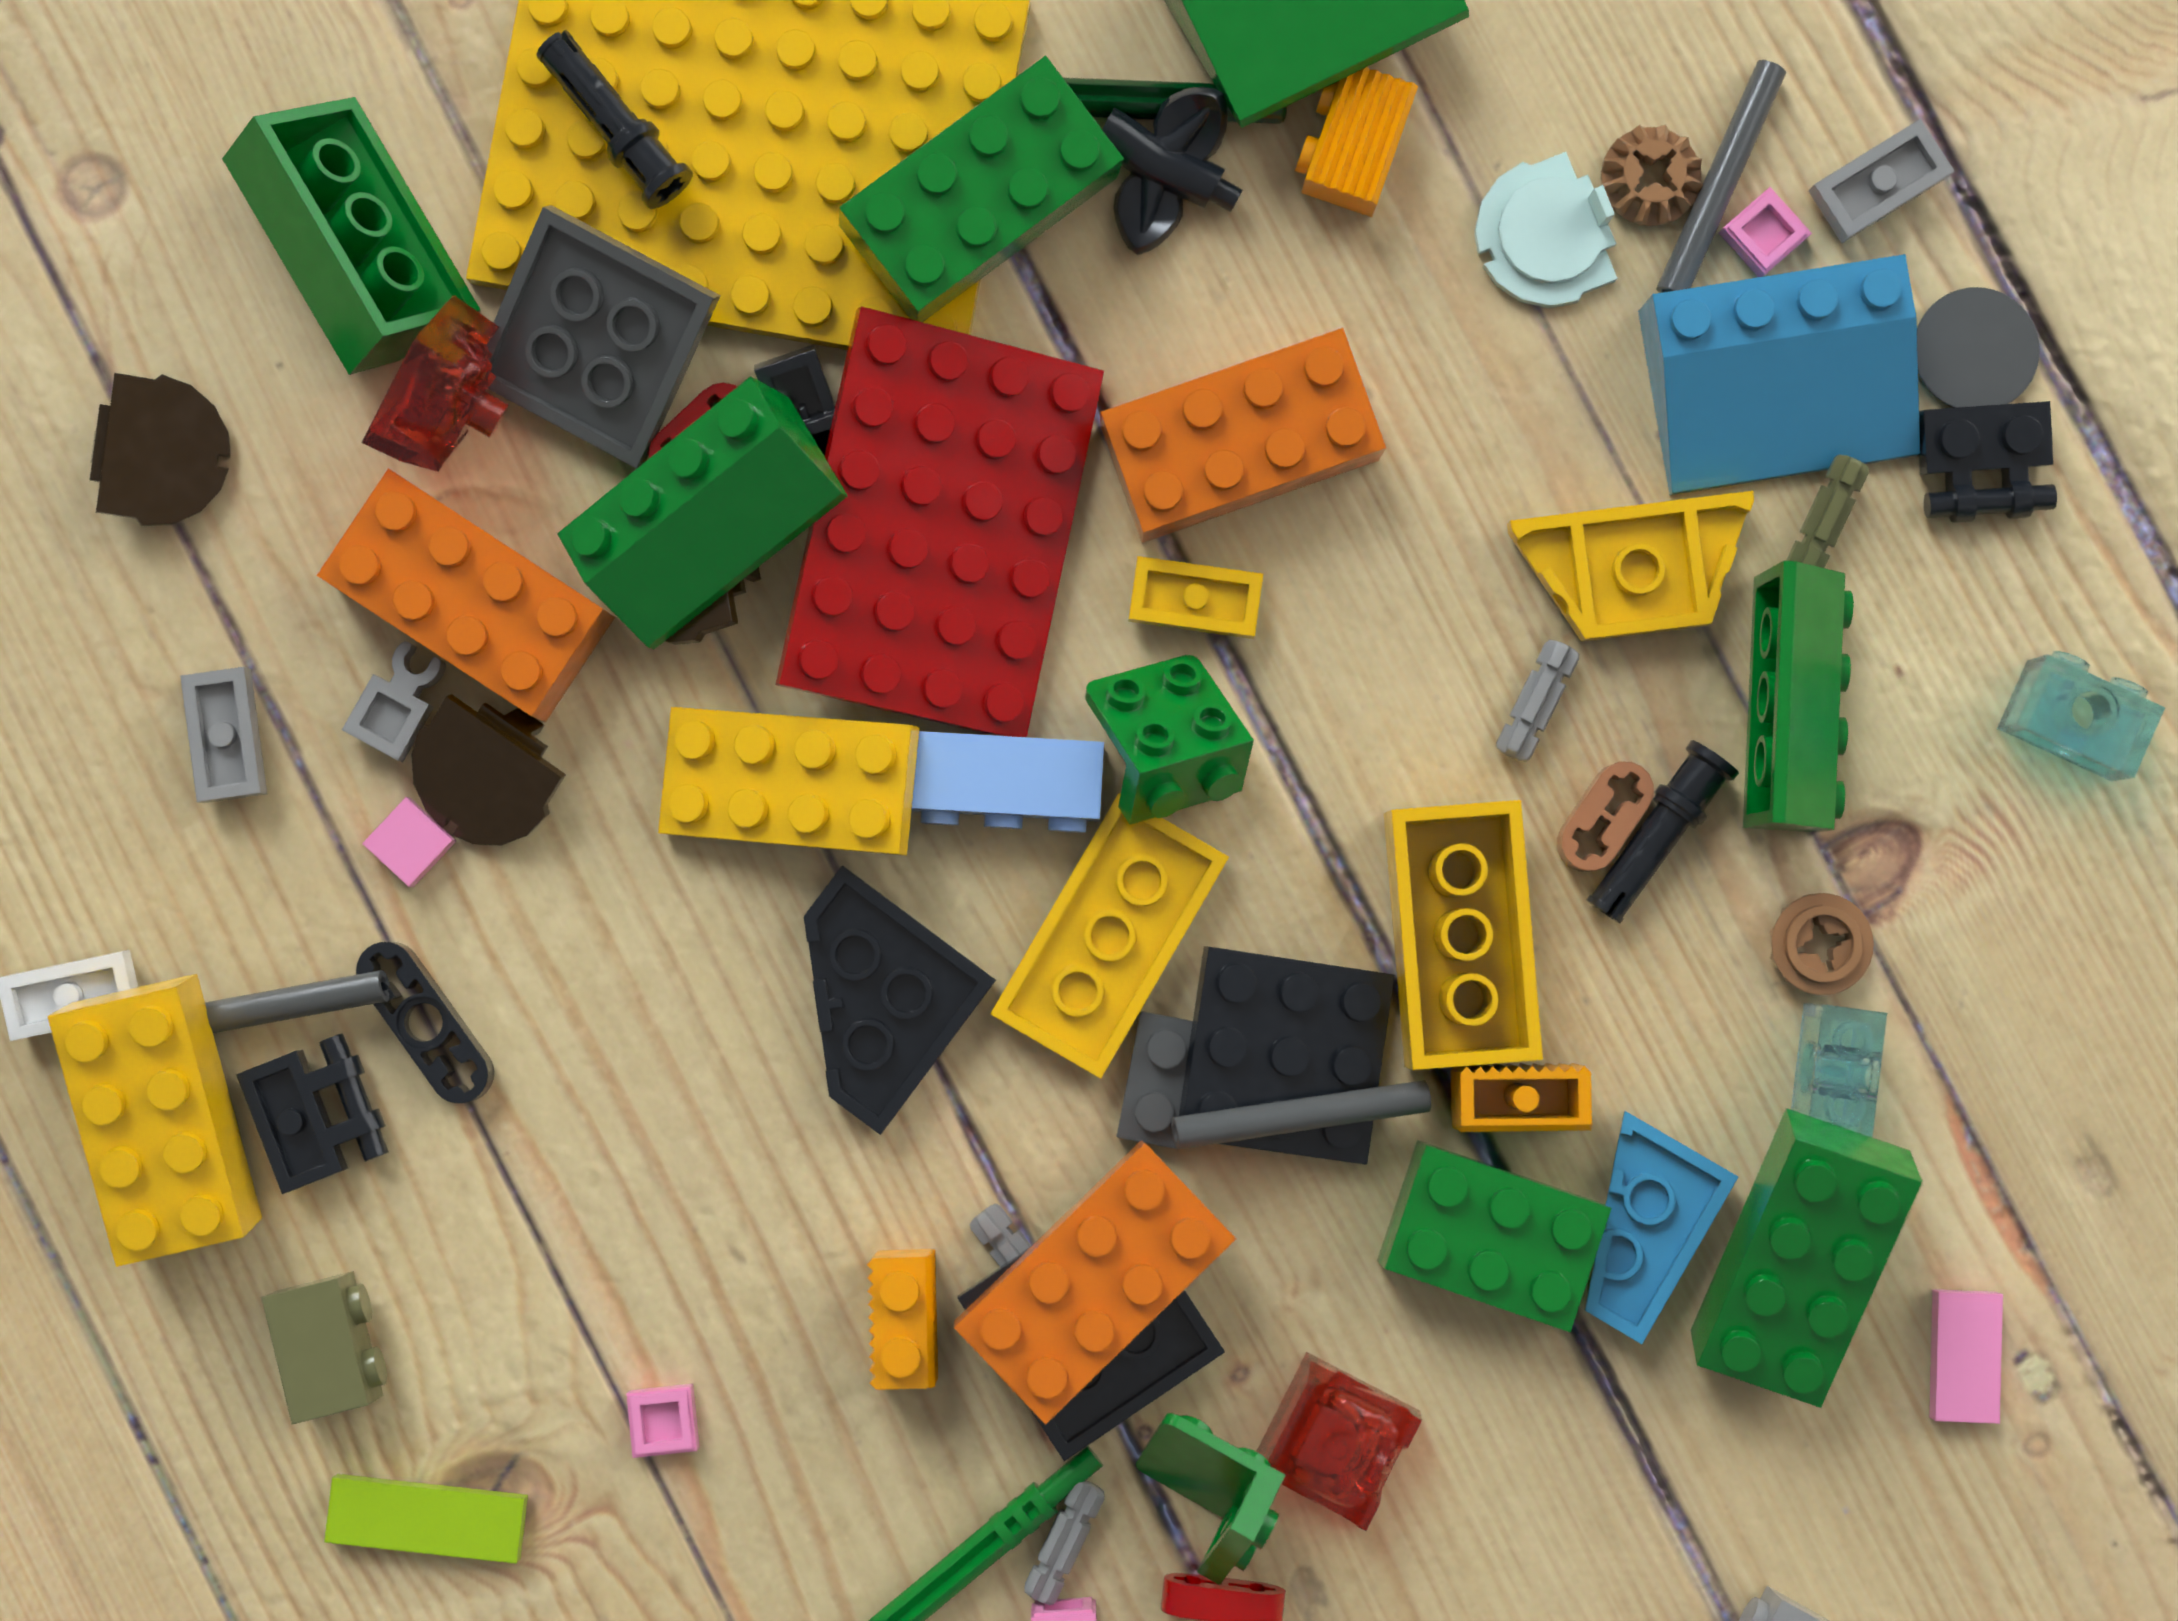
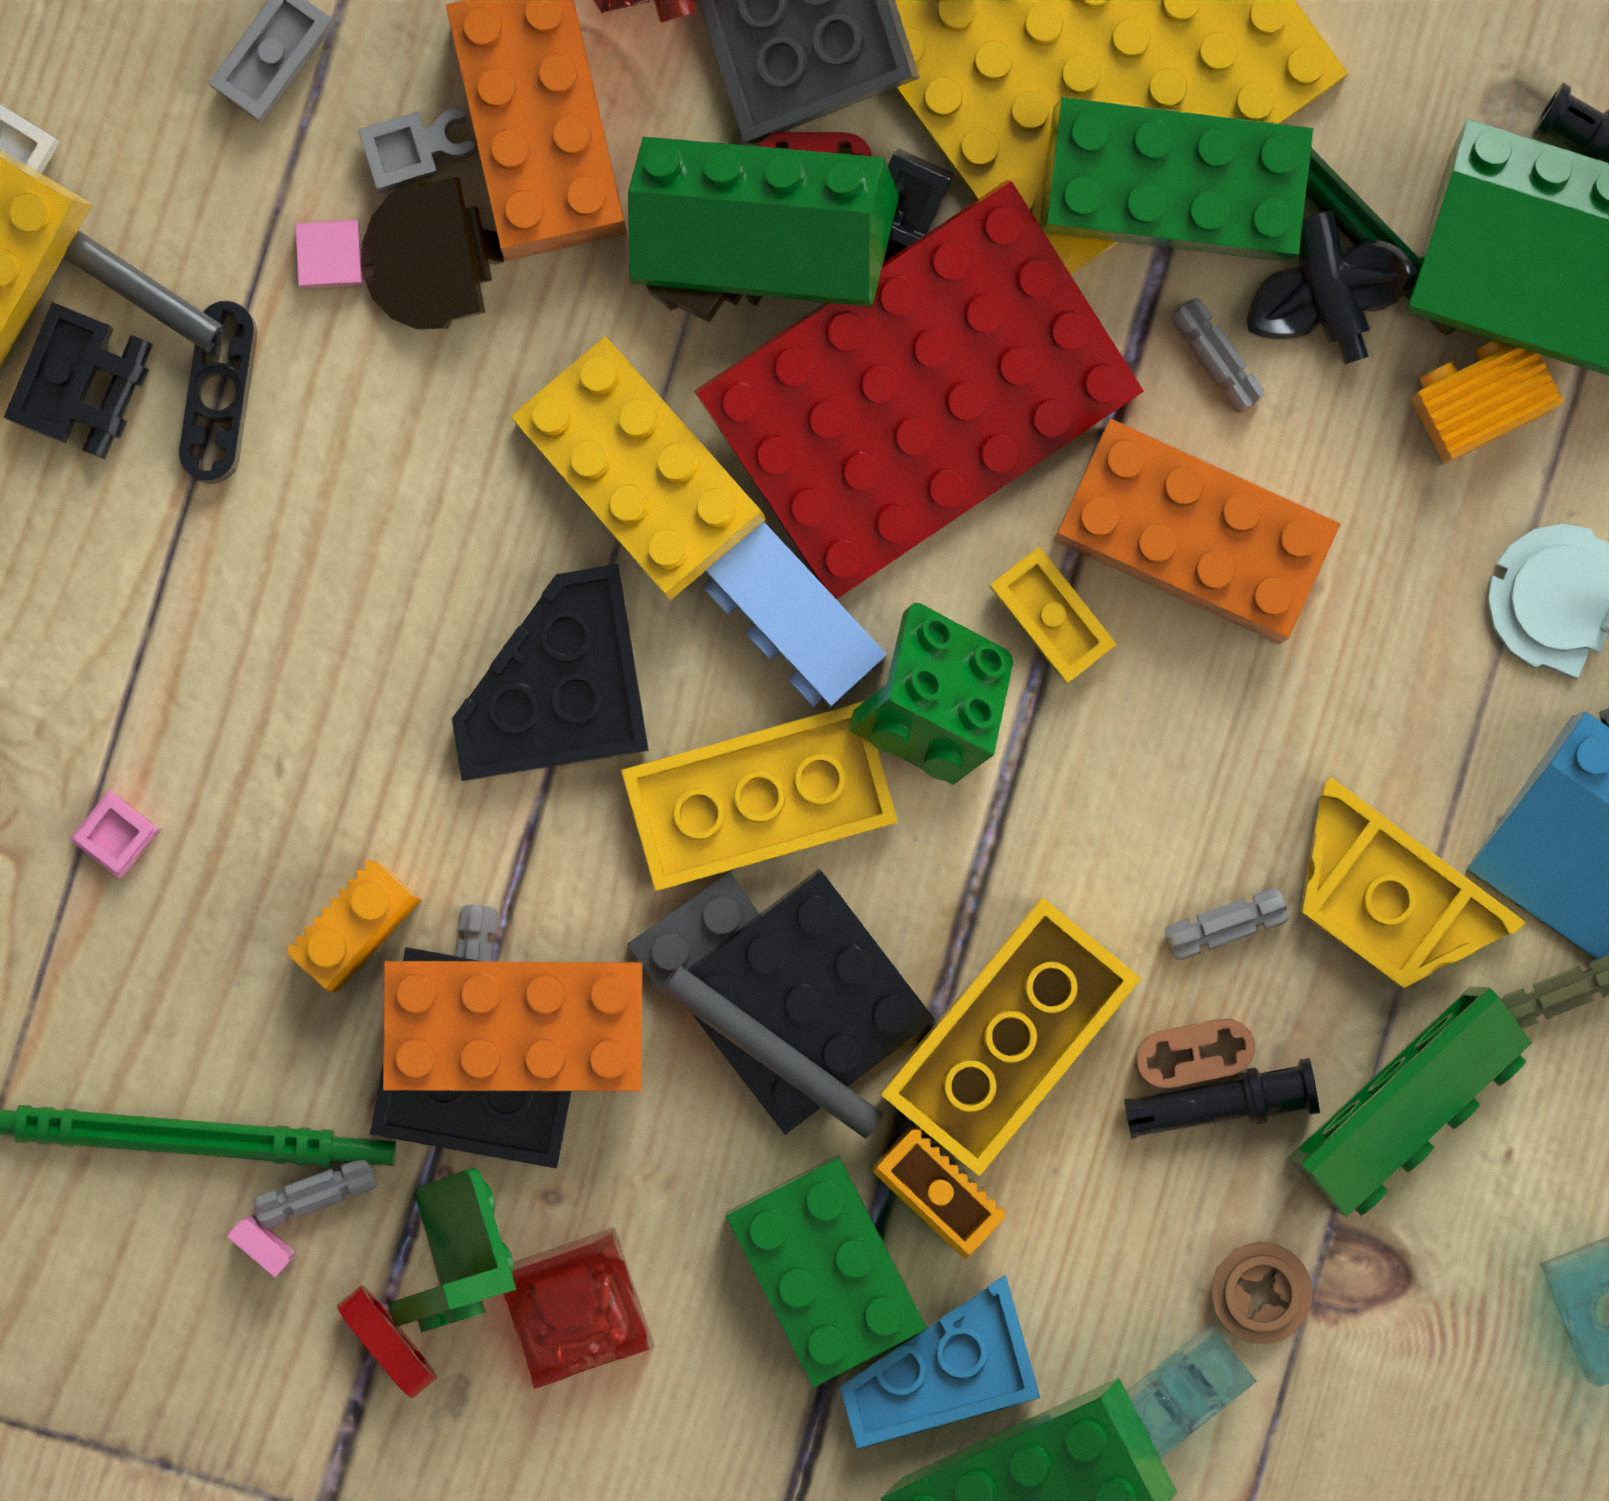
camera: 45 degrees right, 0 degrees up
(1132, 293) = (1217, 355): none -> light grey axle

